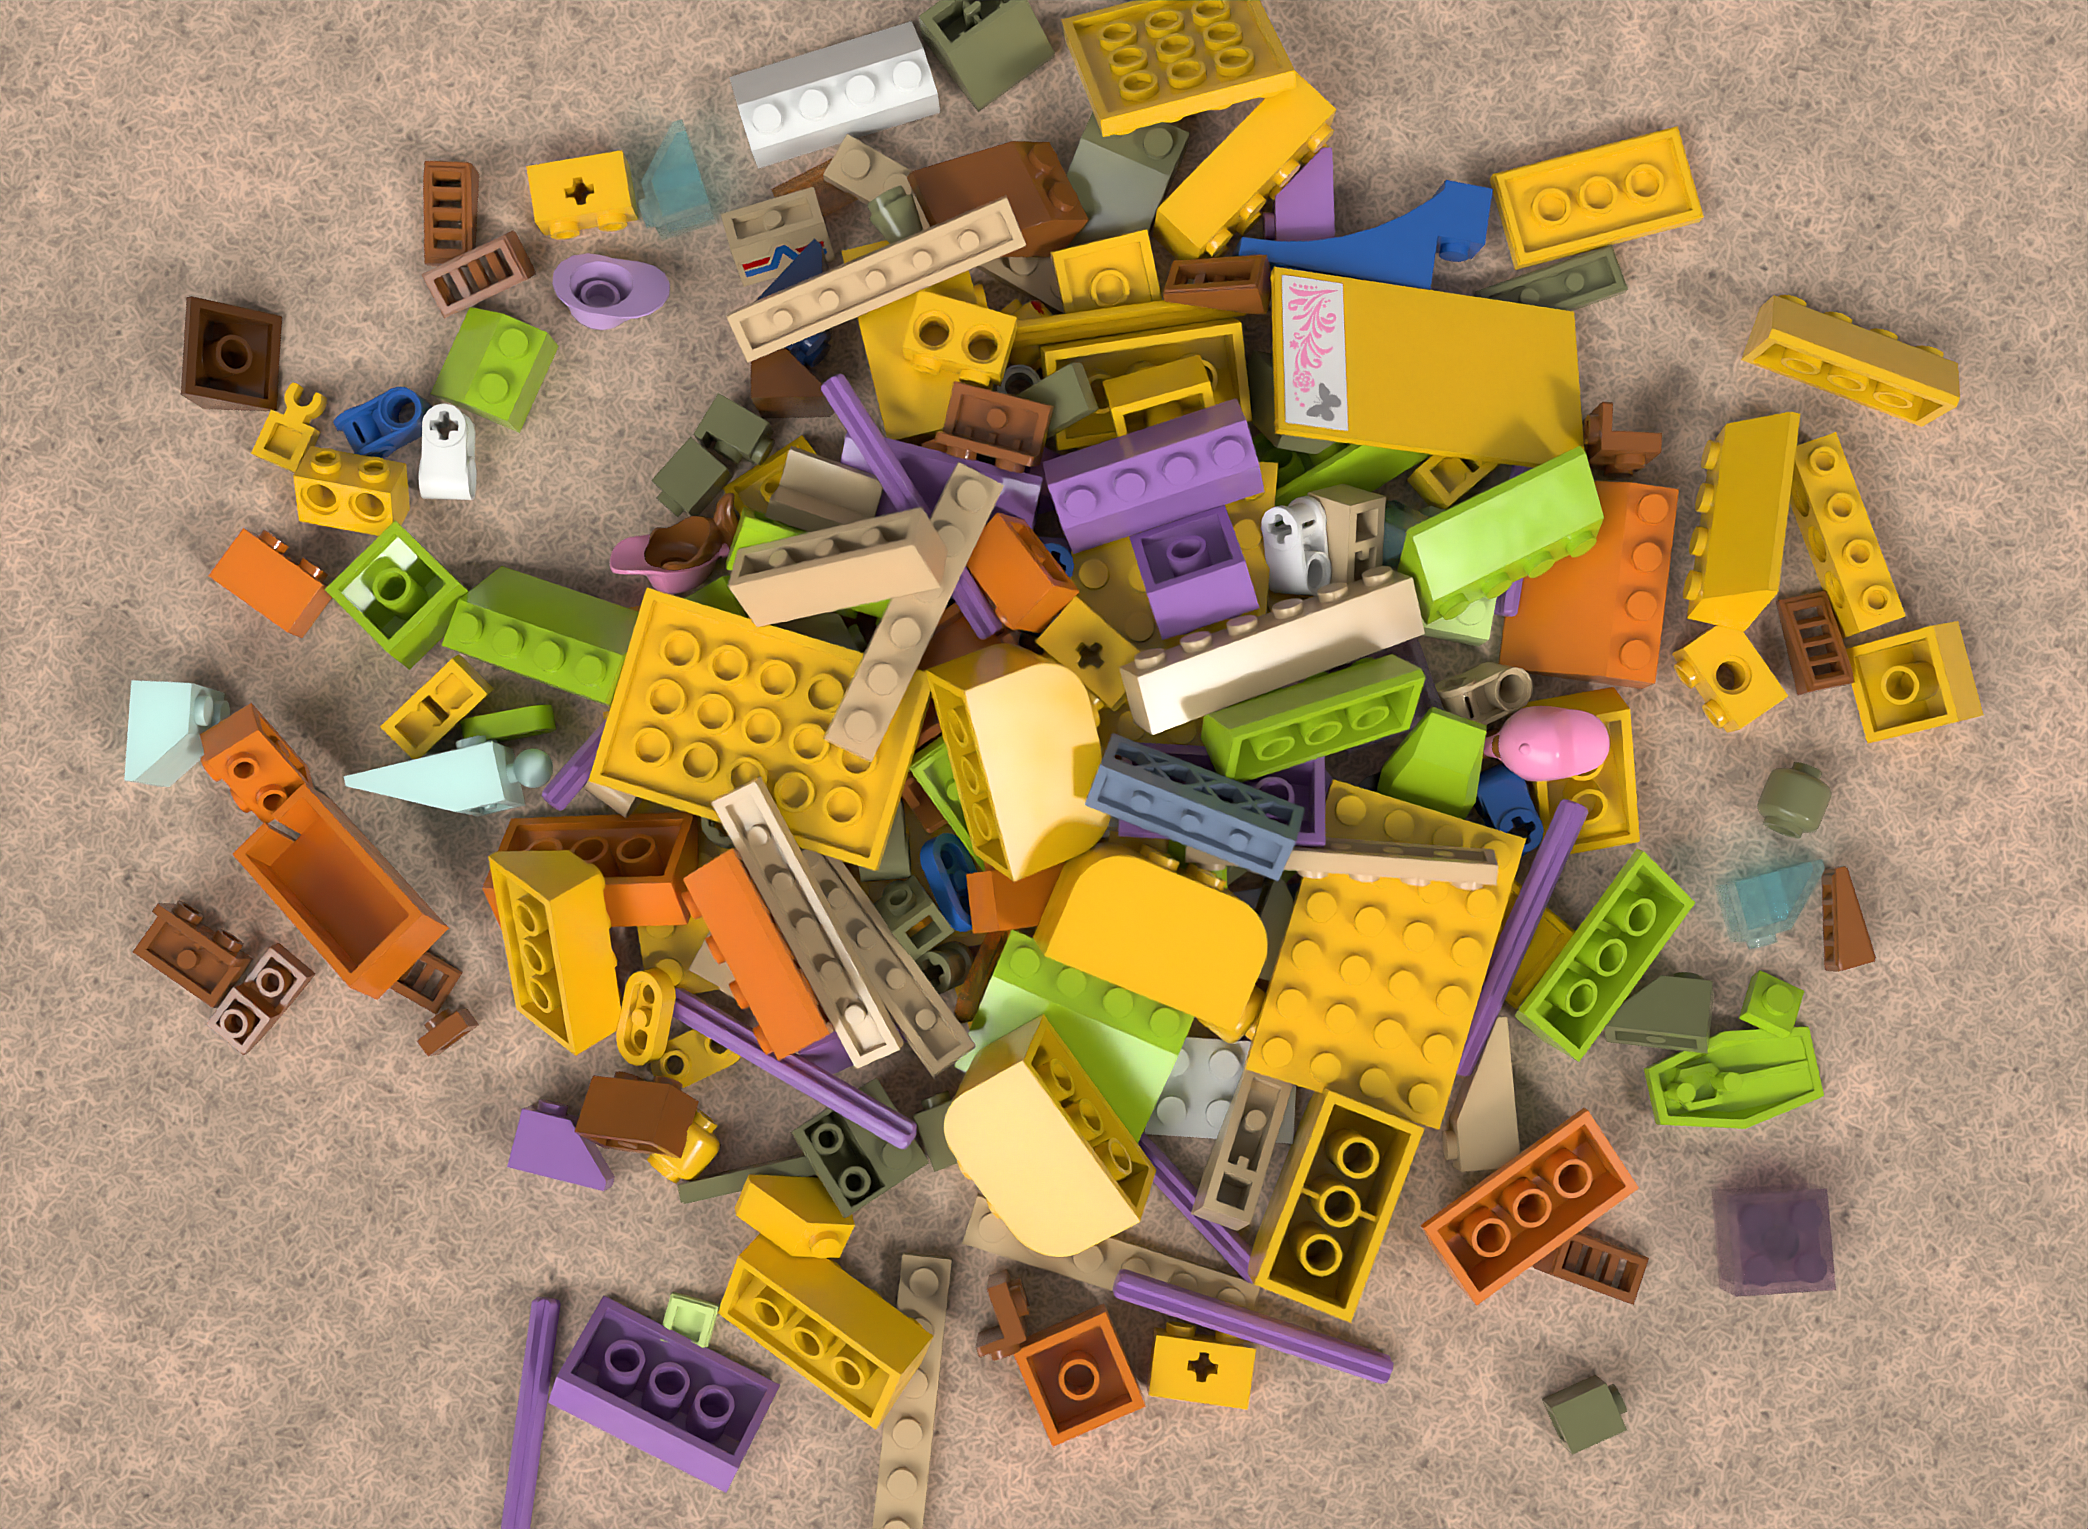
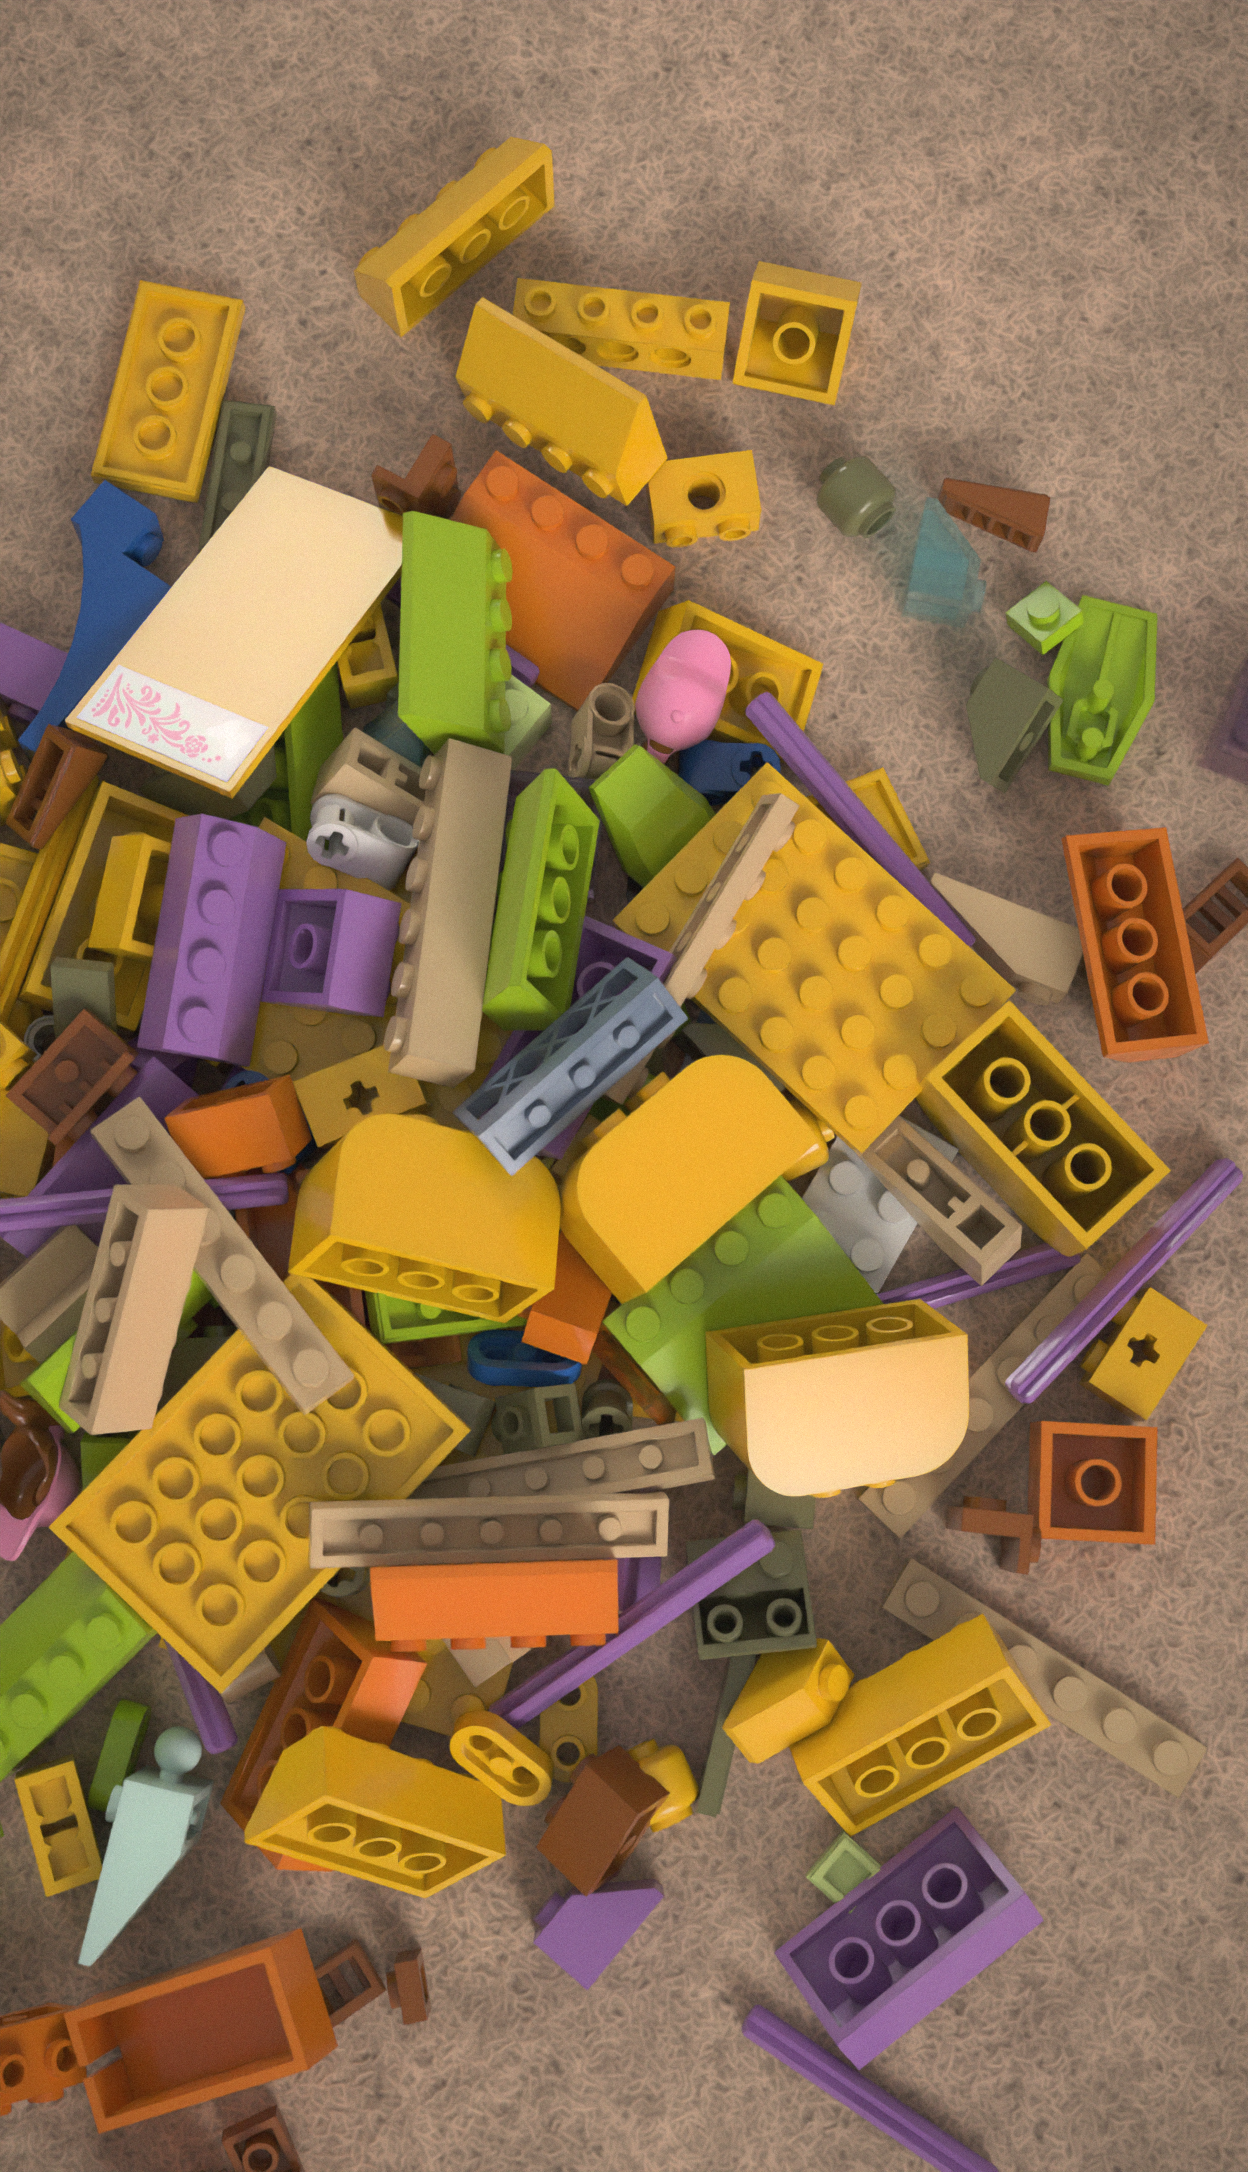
camera: 65 degrees left, 5 degrees down
(1605, 957) = (921, 748): lime slope -> none
(1800, 663) = (724, 426): dark orange slope -> none

